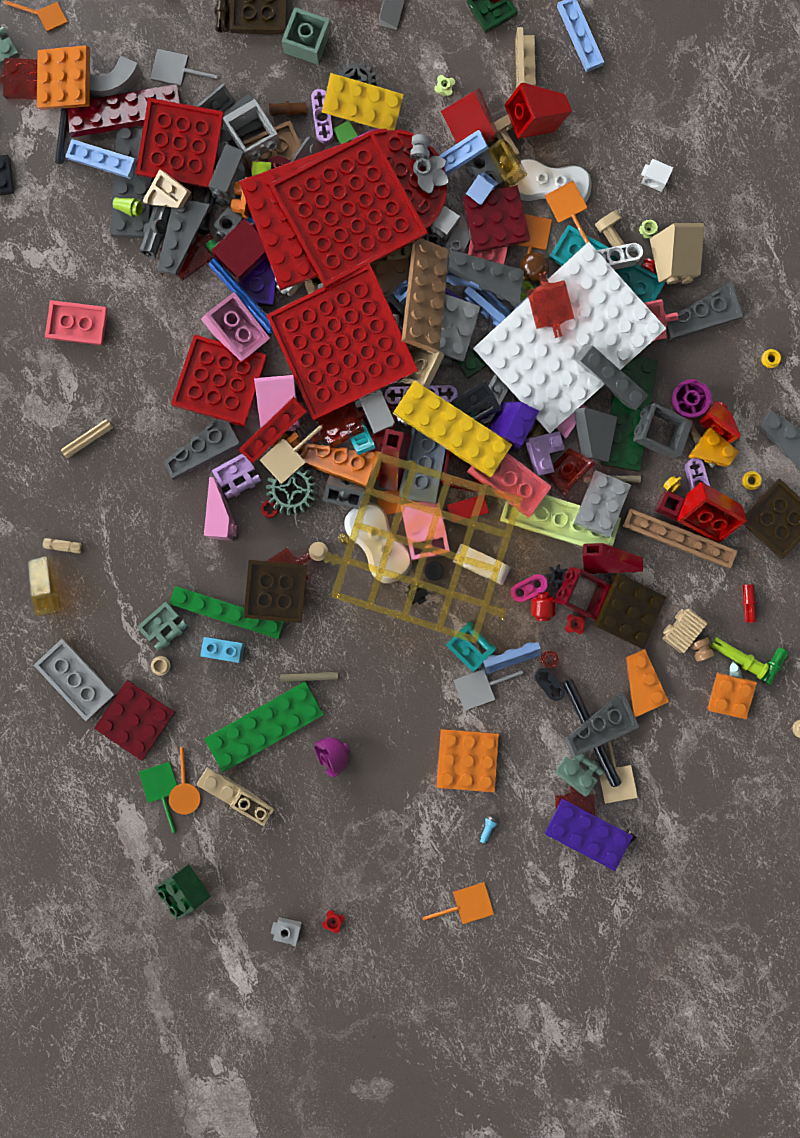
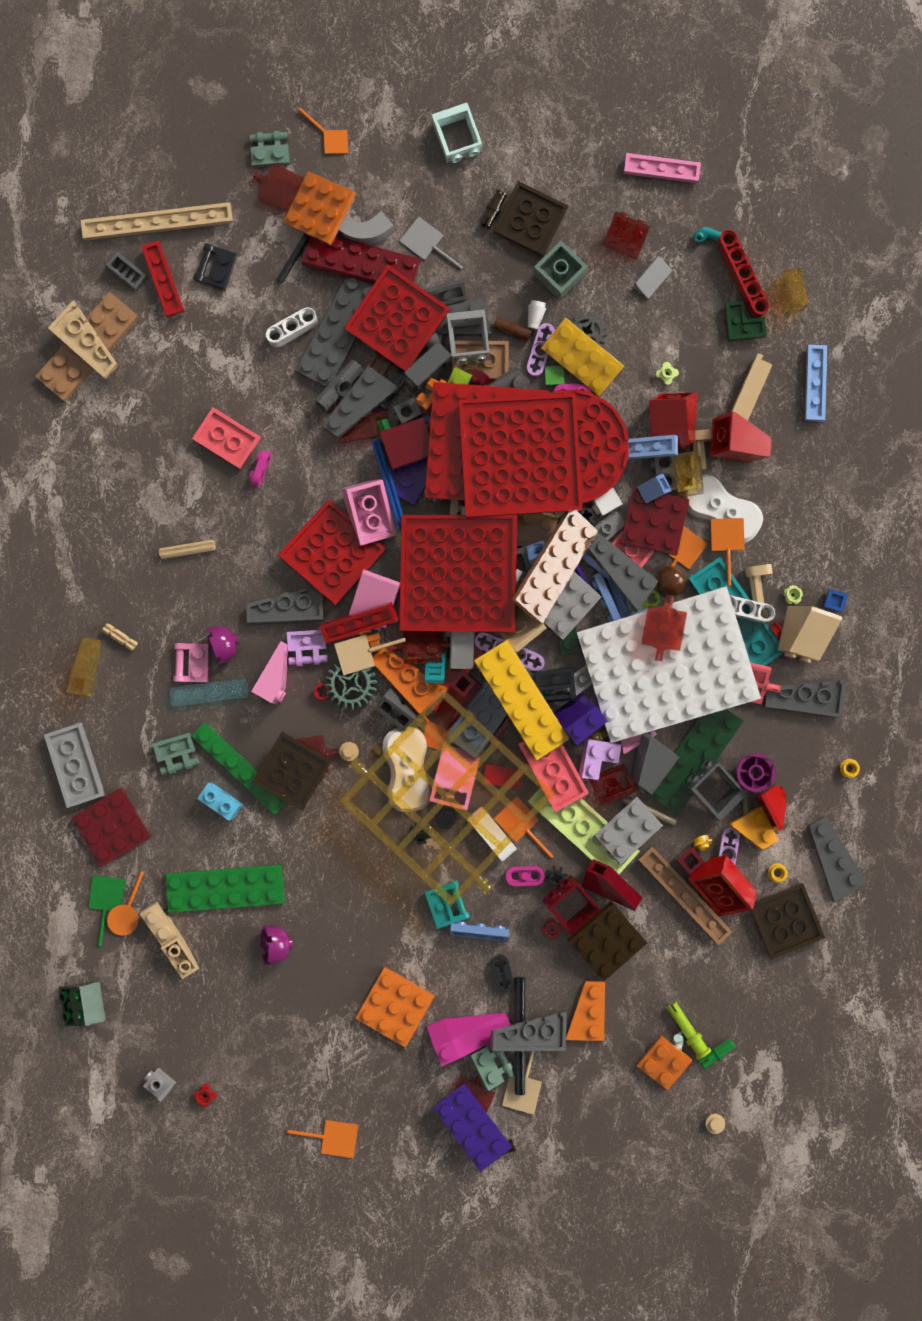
camera: 25 degrees right, 0 degrees up
(88, 188) = (296, 319): none -> white beam
(101, 159) = (319, 298): light blue plate -> none
(119, 330) = (262, 461): none -> dark pink plate
(129, 206) = (323, 354): lime cone -> none
(144, 536) = (198, 662): none -> bright pink plate
(157, 507) = (222, 643): none -> magenta cylinder
(160, 665) = (157, 788): tan plate -> none
(166, 192) = (364, 359): tan wing -> none
(167, 557) = (209, 692): none -> clear light blue plate
(302, 84) = (535, 314): none -> white cone
(309, 676) = (287, 862): dark tan bar -> none
(420, 147) = (614, 426): light grey wheel -> none
(433, 175) = (613, 457): light grey plate -> none
(476, 689) = (433, 945): light grey piece -> none
(491, 543) = (509, 820): none -> orange piece
(491, 822) = (390, 1073): medium azure piece -> none
(541, 756) = (462, 1035): none -> dark pink wedge
(543, 606) = (529, 899): red head -> none
(555, 661) = (509, 945): clear red bush -> none
(603, 369) = (688, 719): dark grey arch -> none
(656, 174) = (823, 548): white brick -> none
(684, 630) = (649, 981): tan brick -> none
(688, 214) = (835, 600): none -> blue plate
(702, 649) = (656, 1007): medium nougat wheel -> none
(749, 603) = (721, 985): red axle -> none

